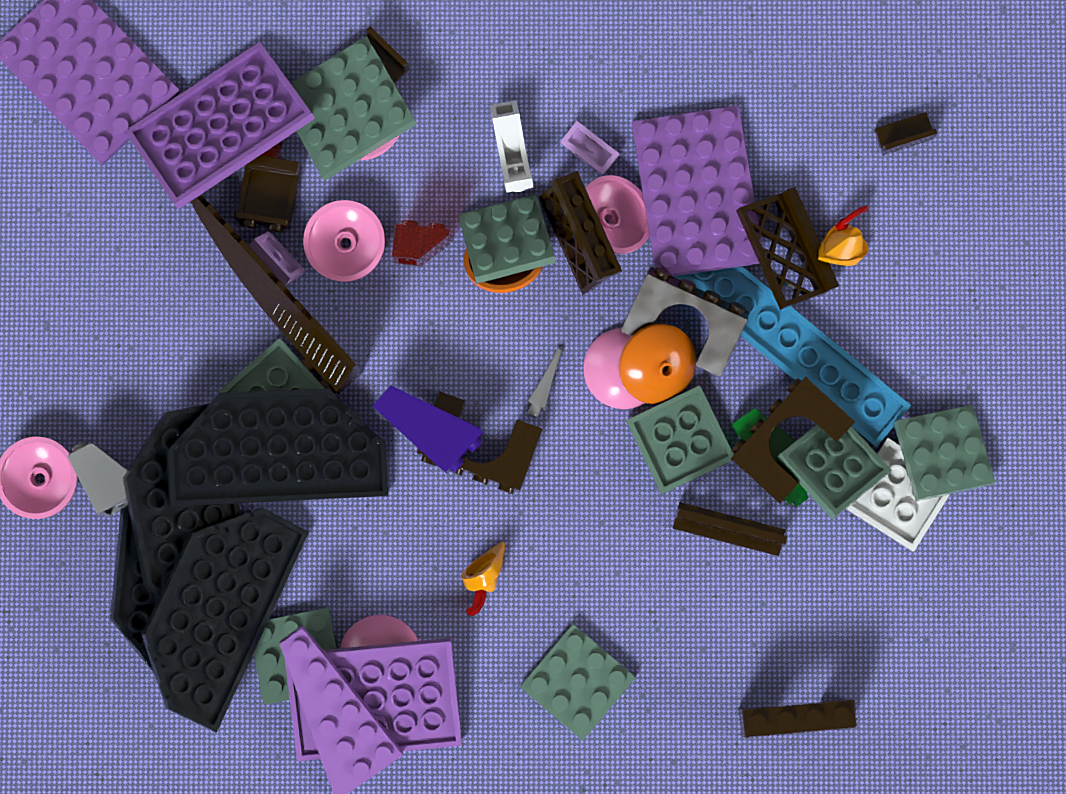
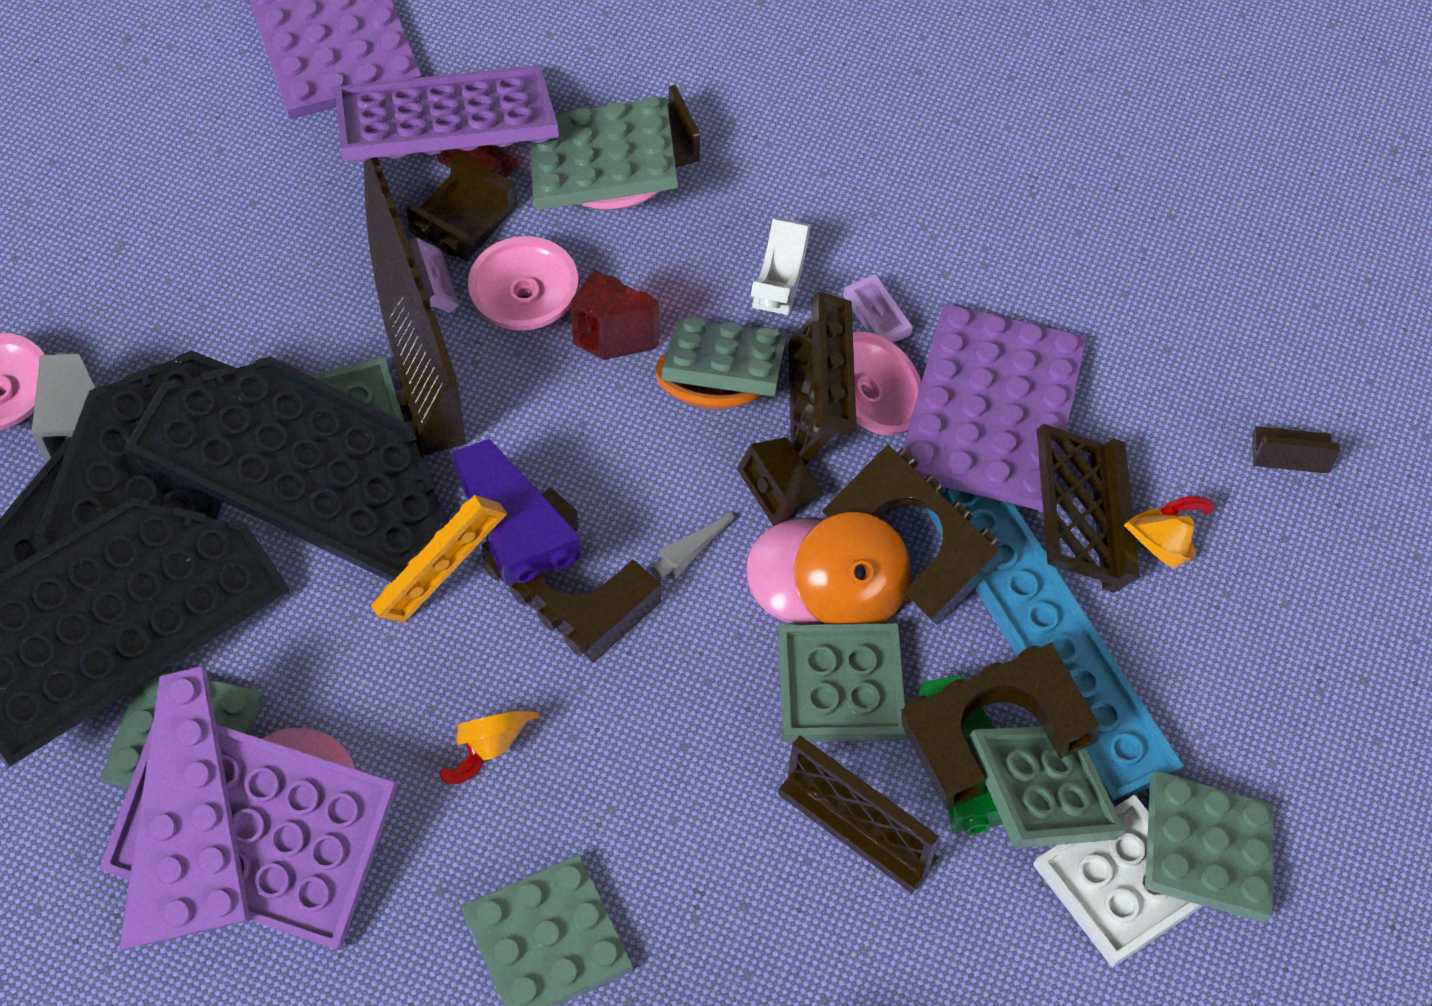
camera: 15 degrees right, 25 degrees down
(395, 487) = (438, 559): none -> light orange plate
(581, 312) = (778, 478): none -> dark brown panel

